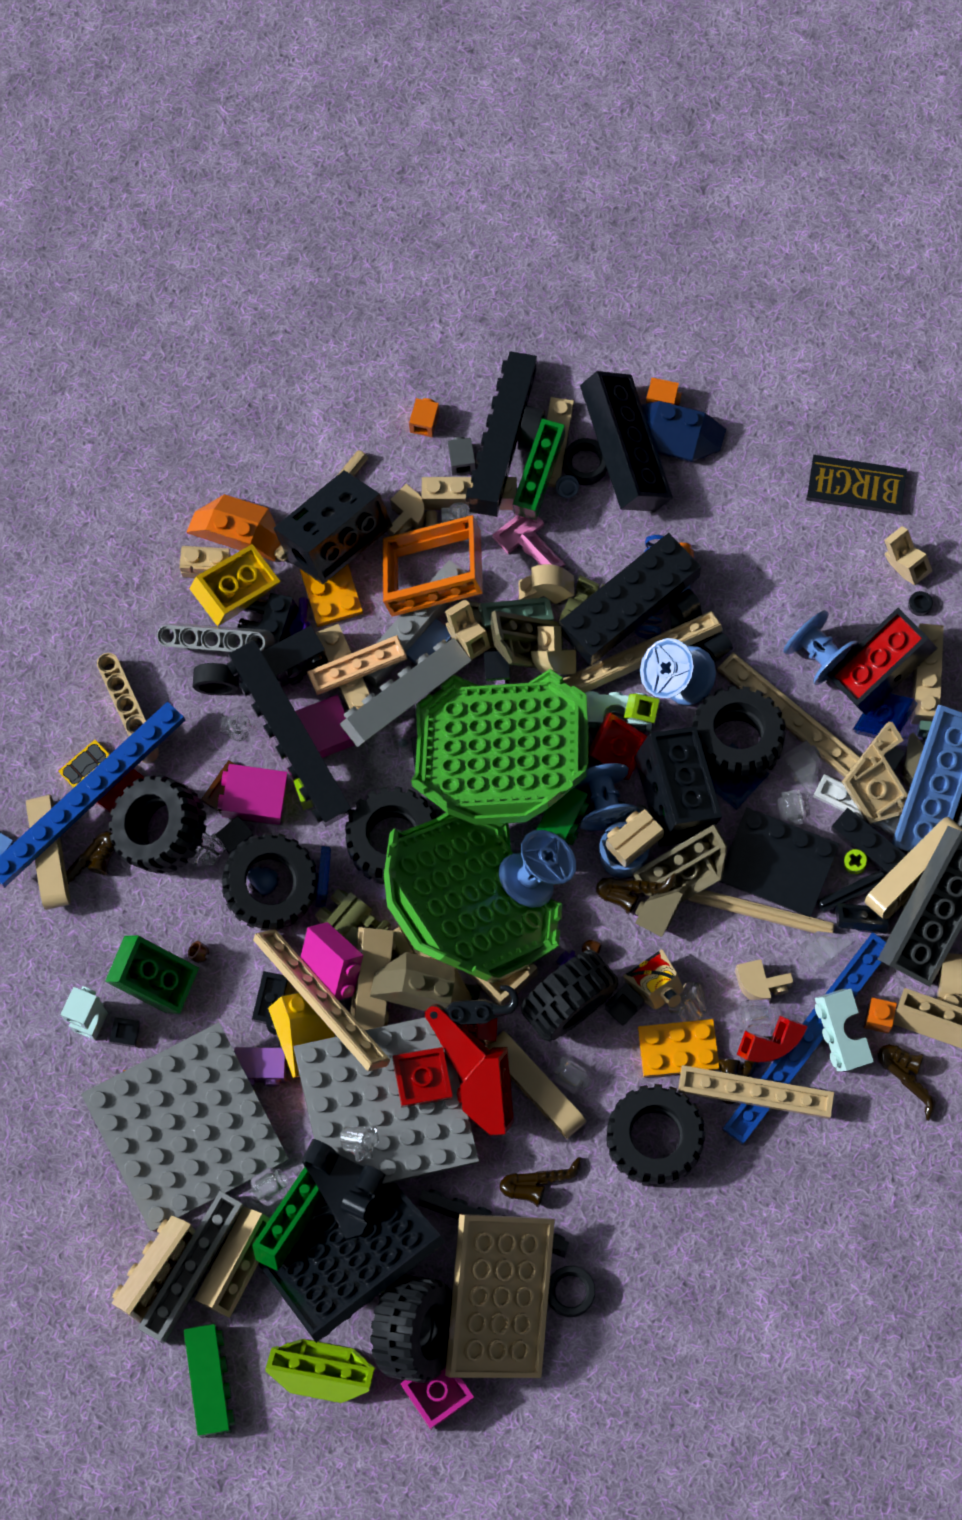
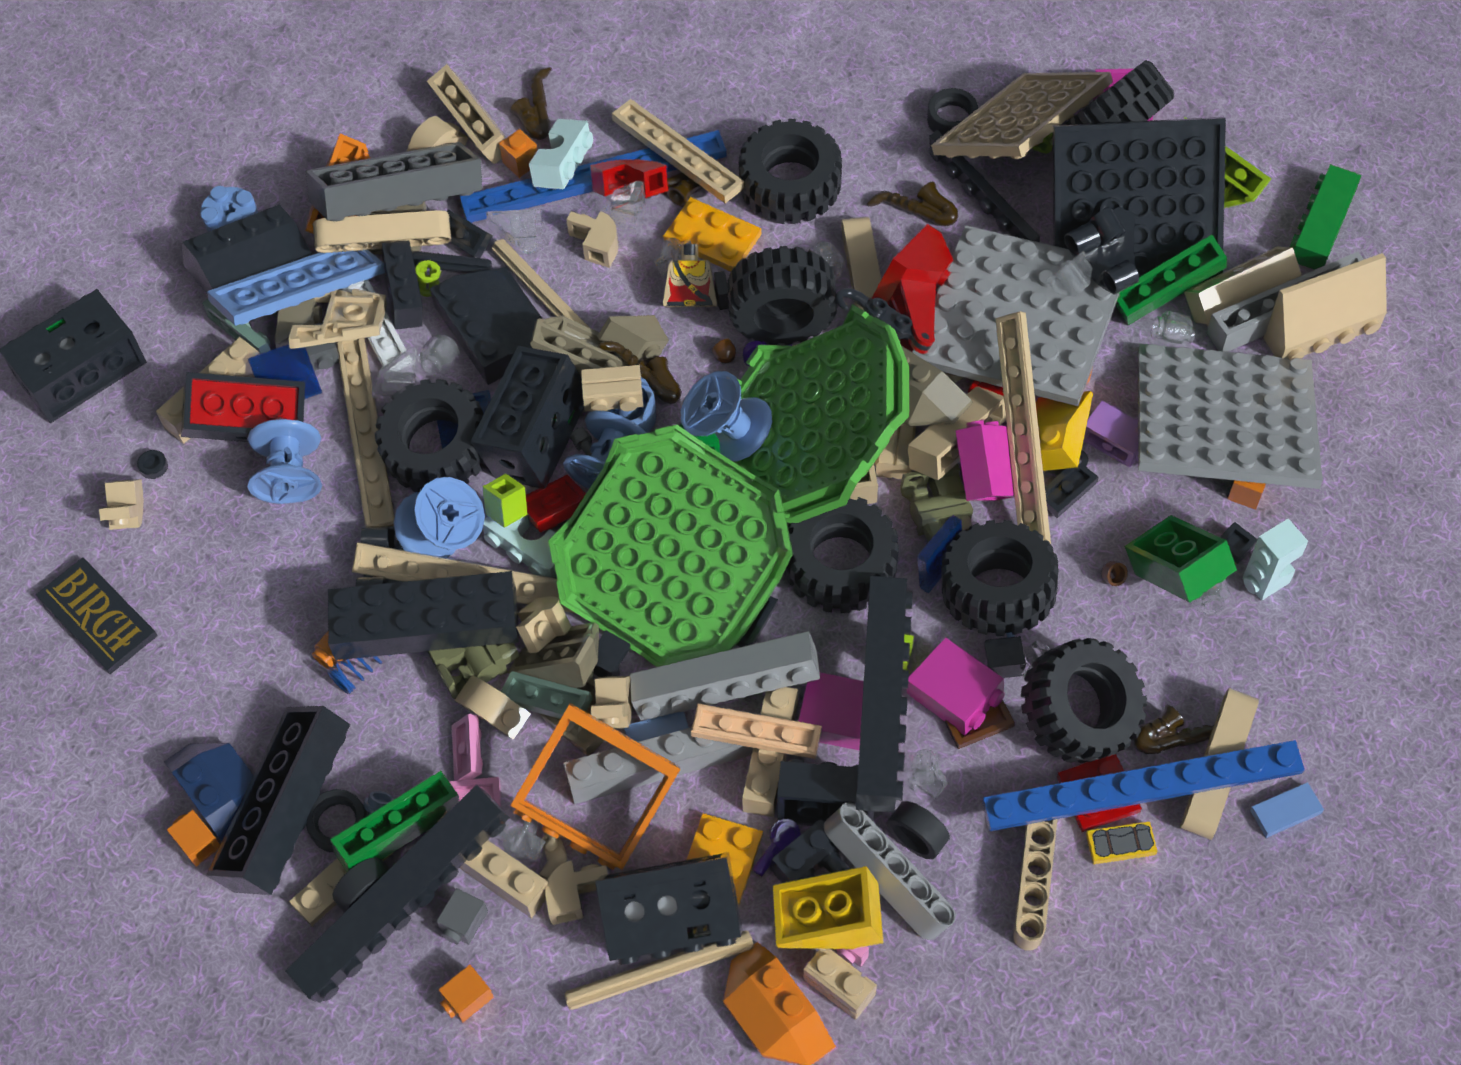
camera: 145 degrees left, 10 degrees down
(422, 1077) = (972, 302): red plate -> none

